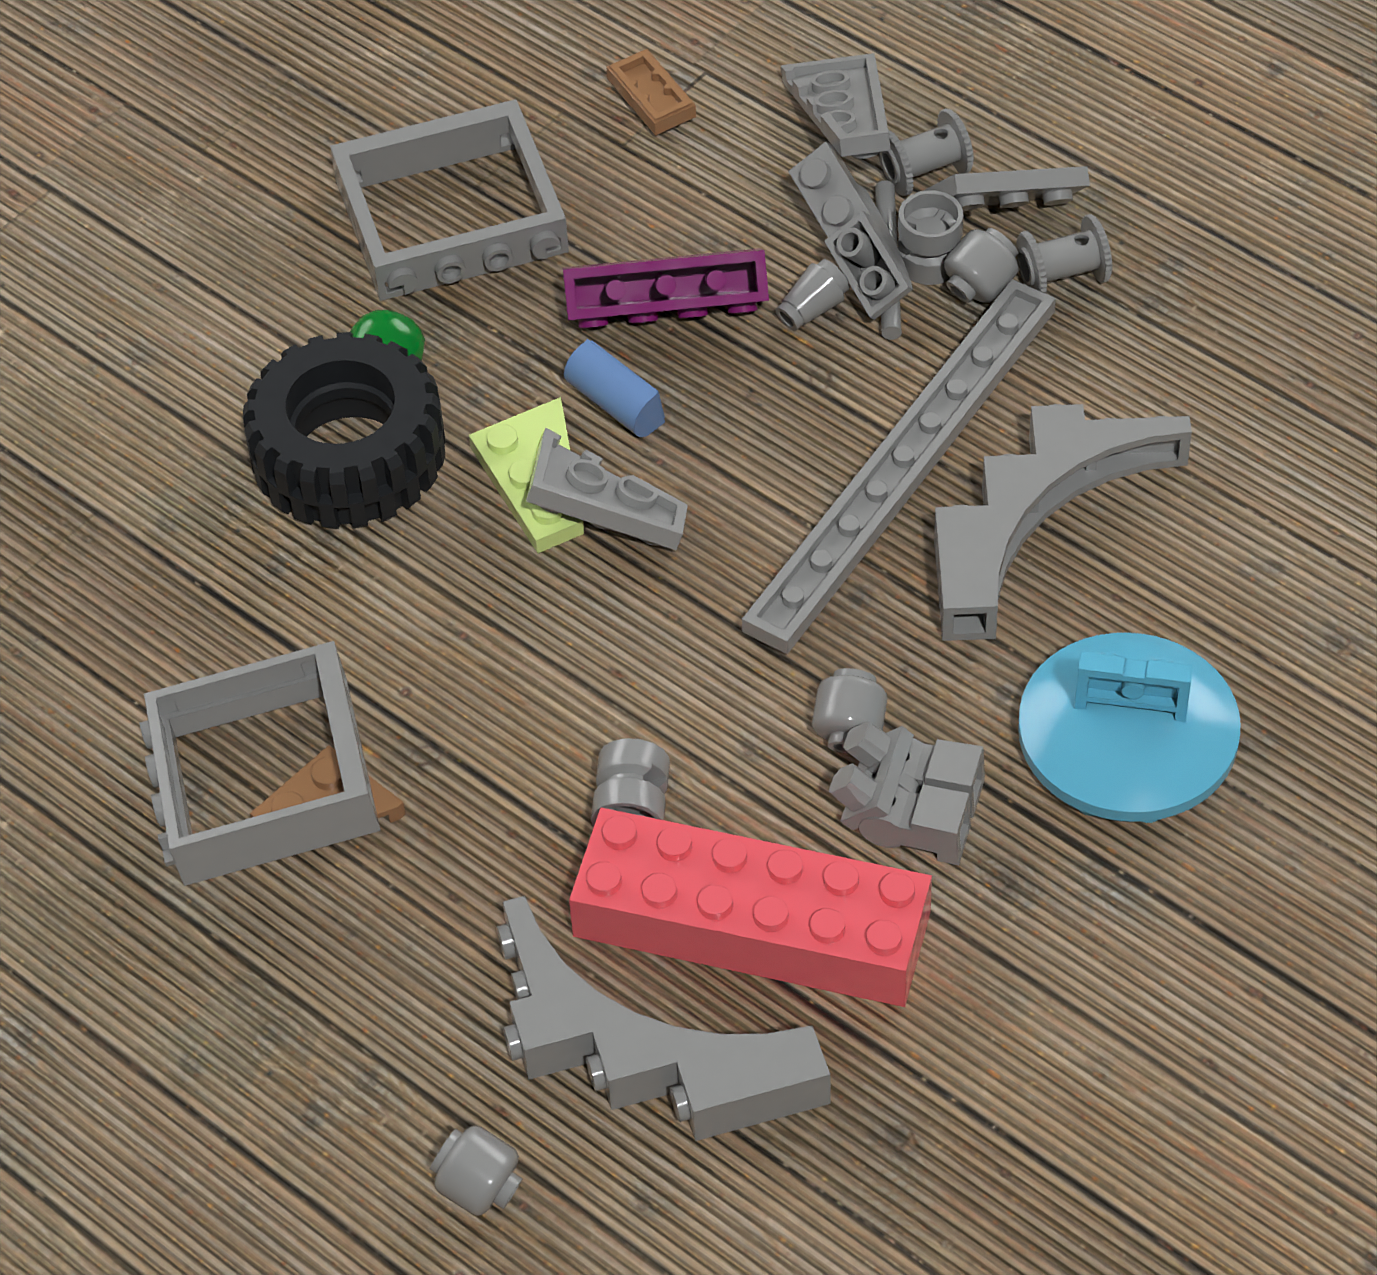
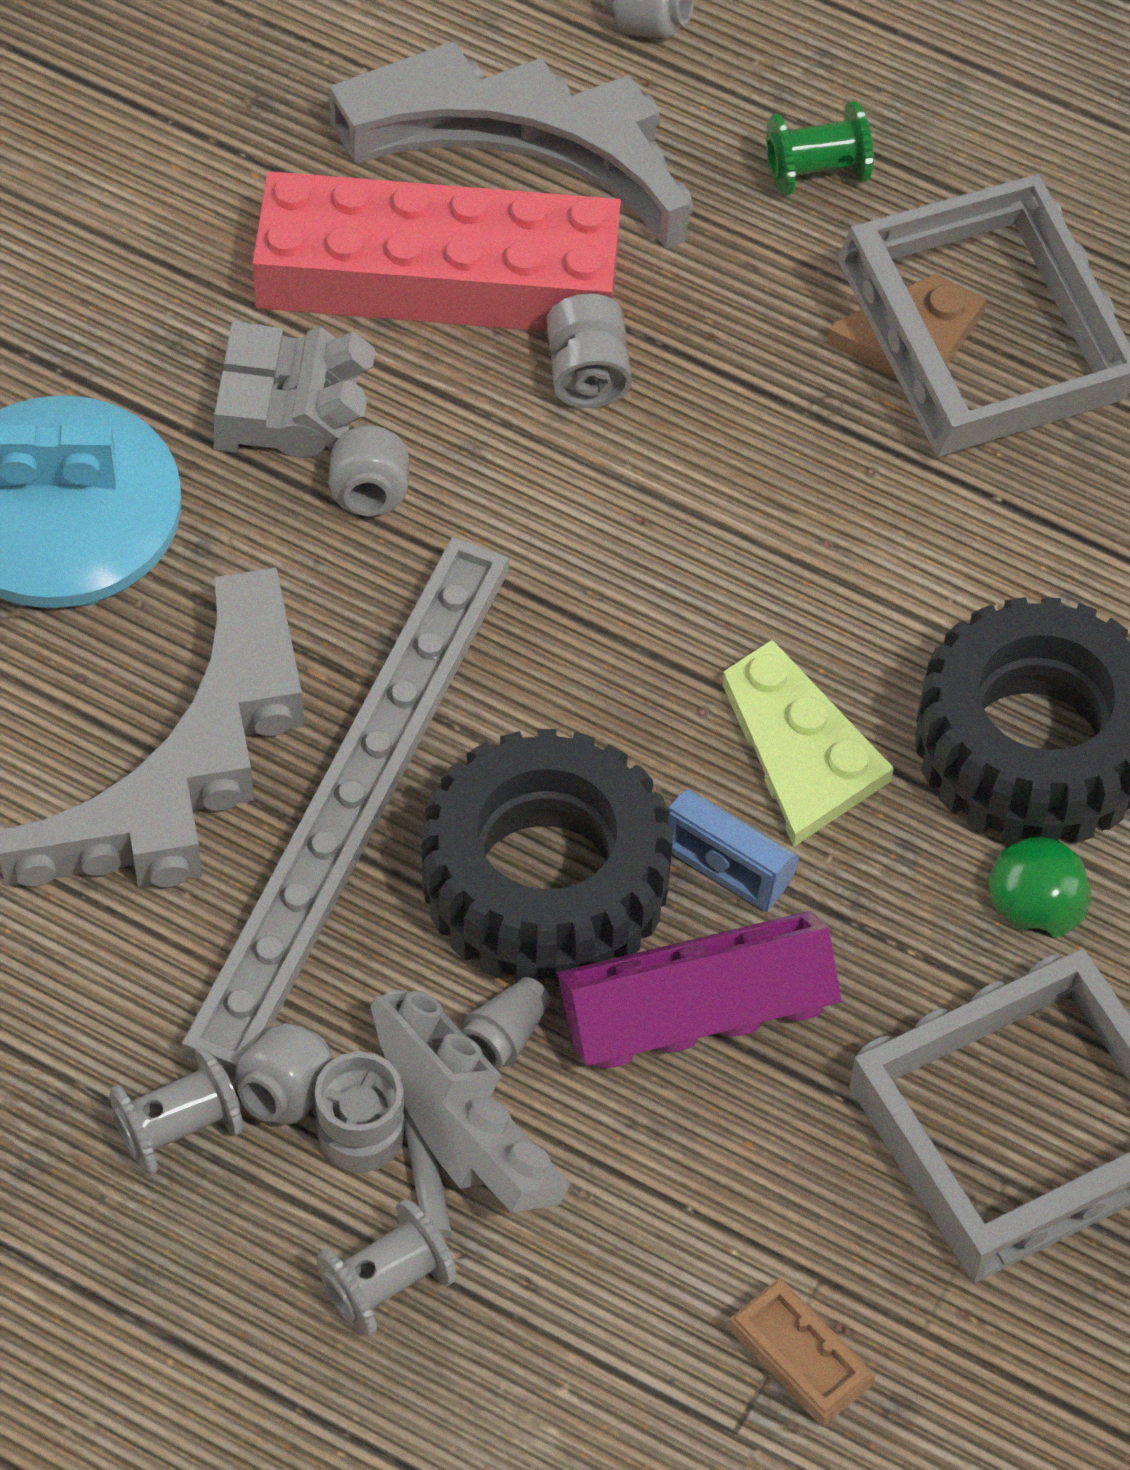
camera: 165 degrees right, 5 degrees up
(356, 971) = (819, 148): none -> green hose
(588, 492) = (709, 683): light grey wing -> none
(769, 423) = (556, 785): none -> black tyre
(843, 102) = (516, 1340): light grey wing -> none
(1014, 187) = (278, 1199): light grey wing -> none

